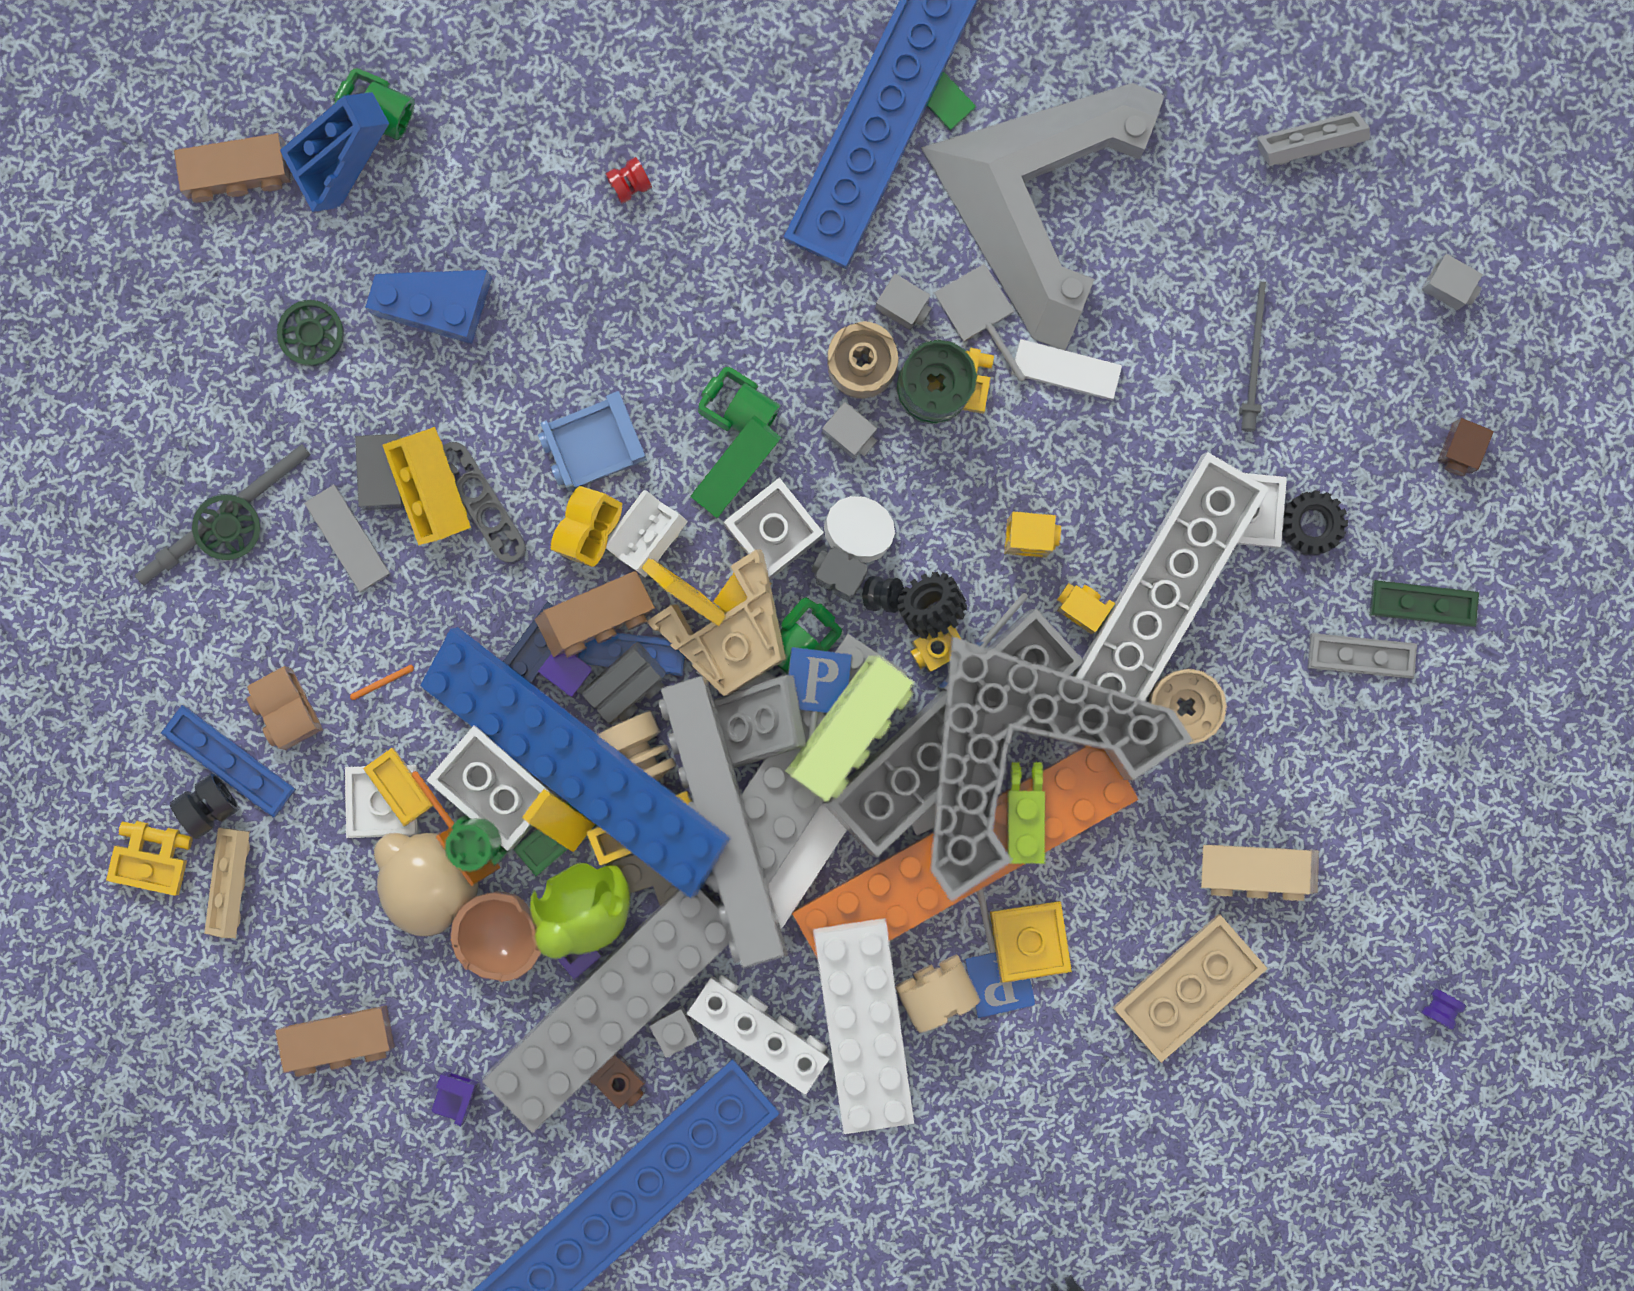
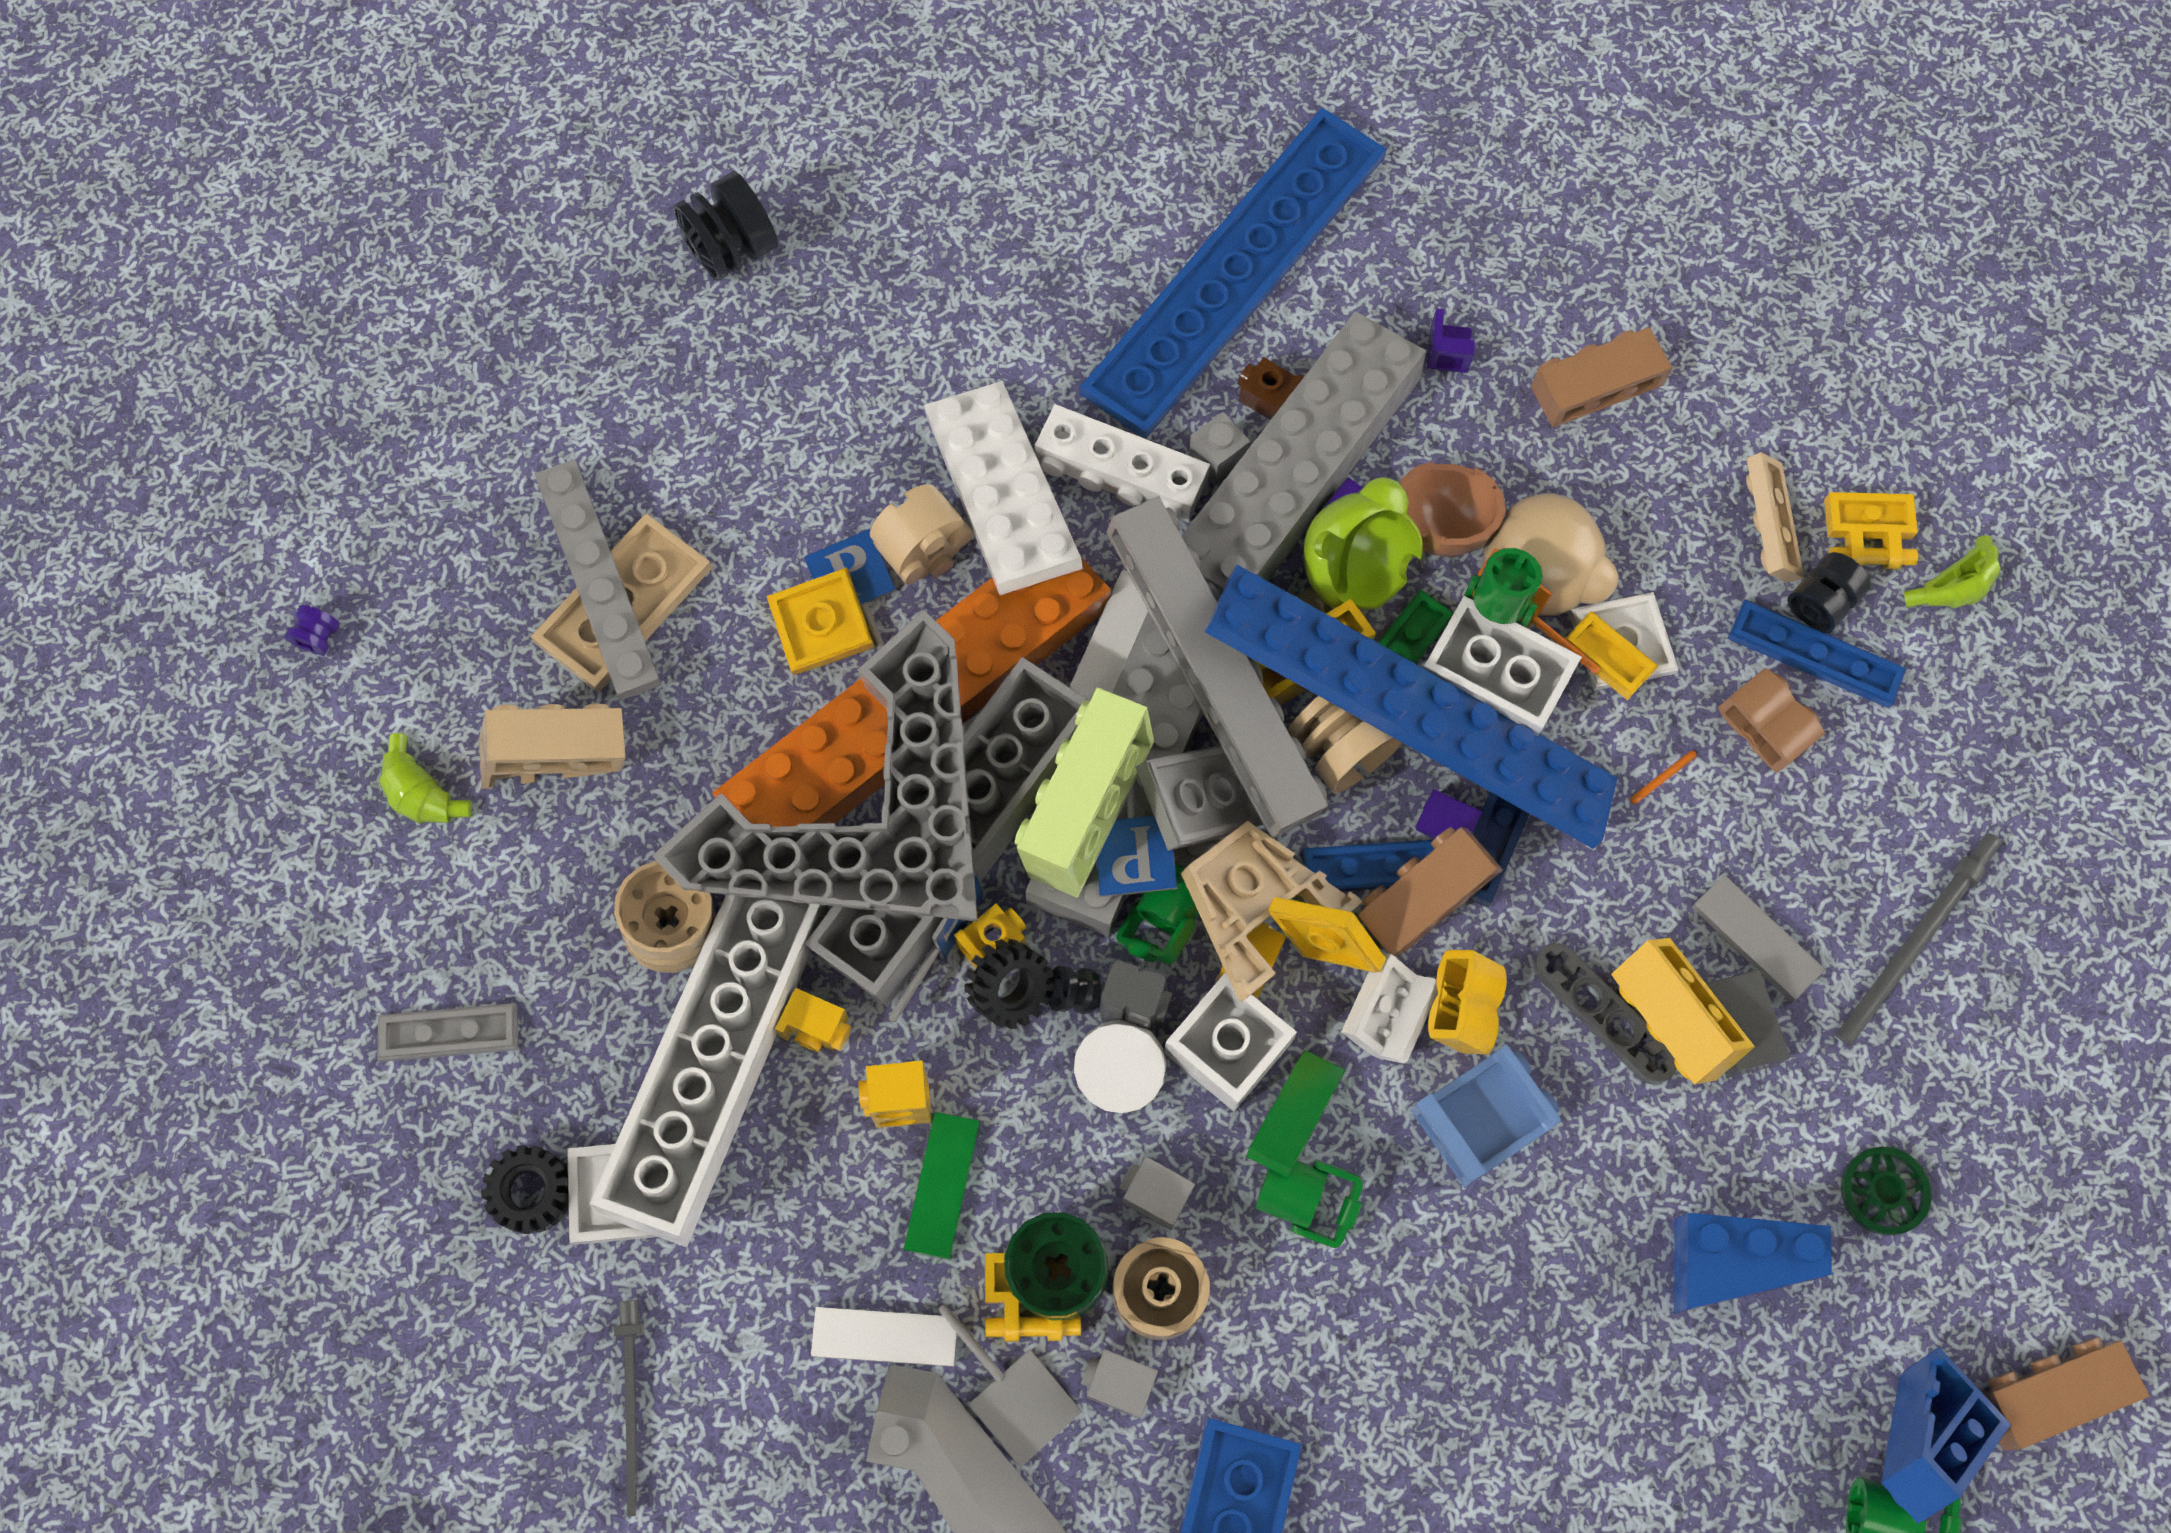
camera: 175 degrees right, 15 degrees down
(89, 797) = (1962, 582): none -> lime piece
(226, 526) = (1912, 920): dark green wheel -> none
(558, 820) = (1417, 640): yellow tile -> none
(625, 684) = (1371, 819): dark grey brick -> none
(636, 177) = (1530, 1484): red wheel -> none
(1007, 470) = (942, 1186): none -> green tile
(1026, 817) = (847, 738): lime hinge -> none
(1208, 1009) = (597, 580): none -> light grey plate
(1372, 857) = (413, 790): none -> lime piece
(1424, 603) = (371, 1114): dark green tile -> none
(1465, 447) = (330, 1330): reddish brown brick -> none

